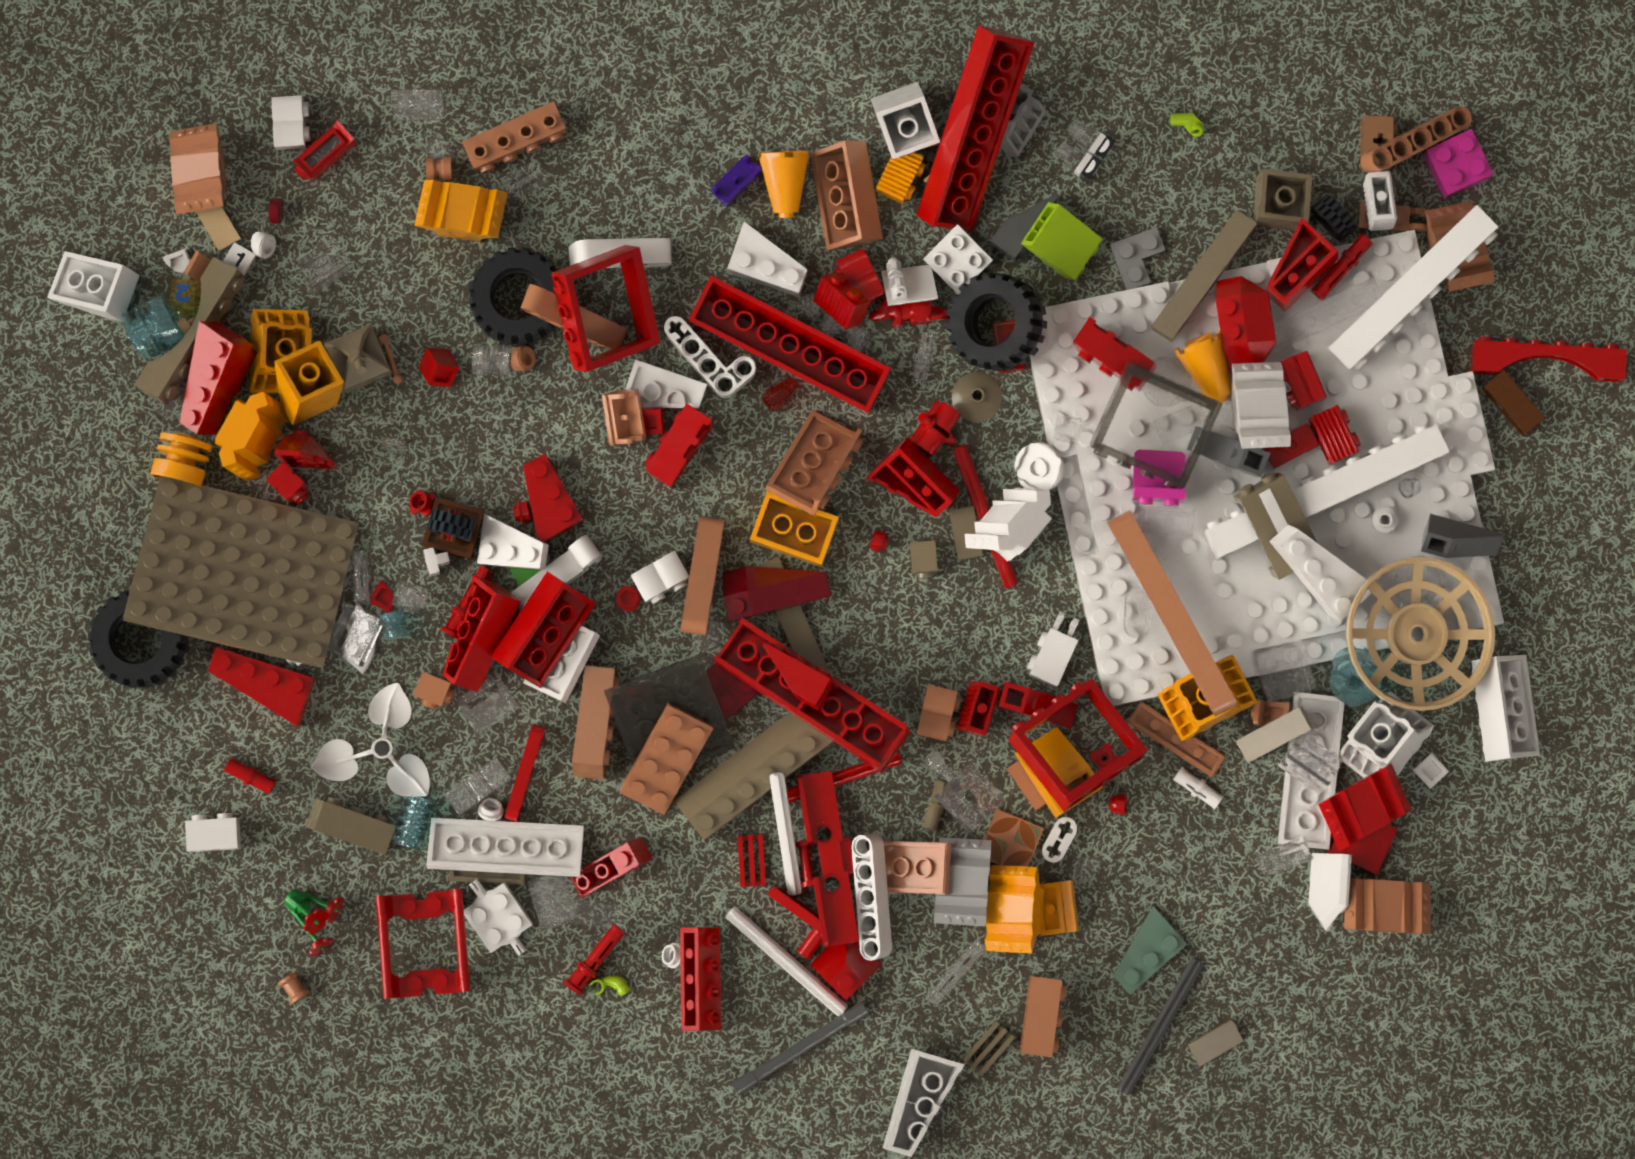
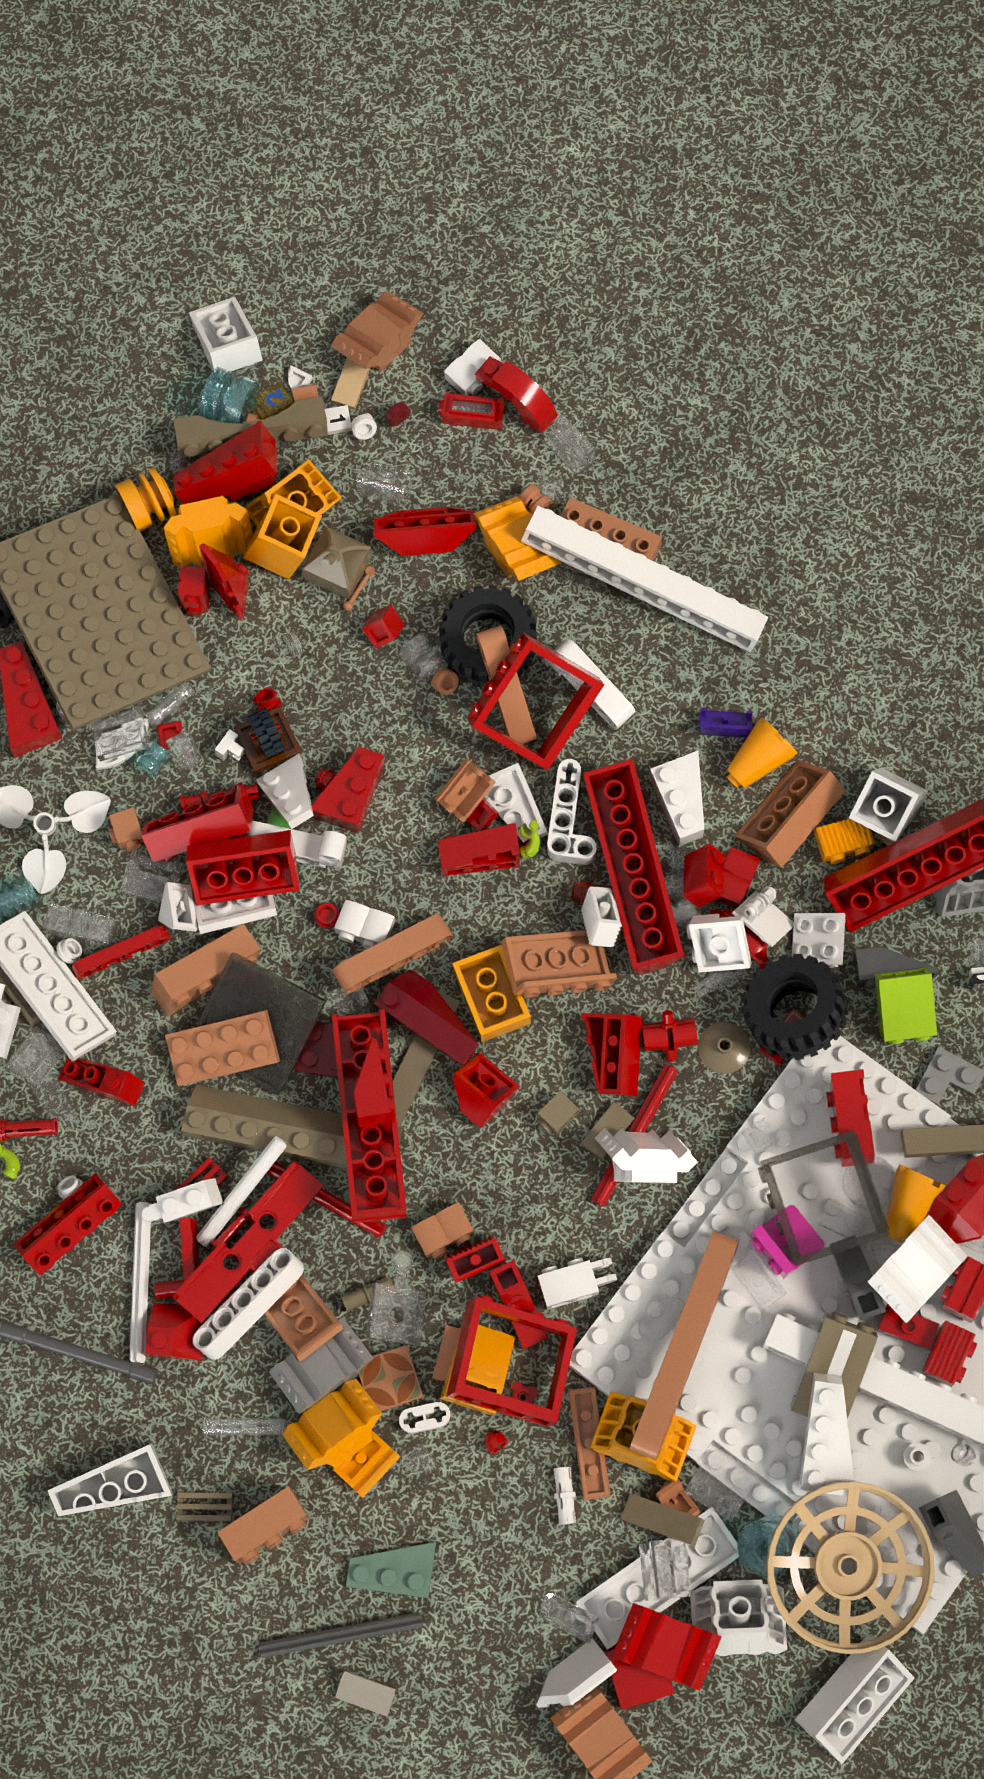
camera: 50 degrees right, 10 degrees down
(354, 103) = (521, 390): none -> red arch
(390, 269) = (425, 530): none -> red wedge
(530, 703) = (178, 907): none -> white slope
(576, 143) = (644, 578): none -> white brick
(708, 404) = (533, 846): none -> lime arm
(758, 881) = (184, 1202): none -> white hinge
(808, 401) = (601, 917): none -> white brick
(859, 596) = (482, 1089): none -> red slope
(879, 541) = (541, 1068): red plate -> none
(901, 334) = (719, 943): none -> white plate
(1039, 466) = (711, 1142): white tile -> none
(1430, 770) = (747, 1680): white tile -> none

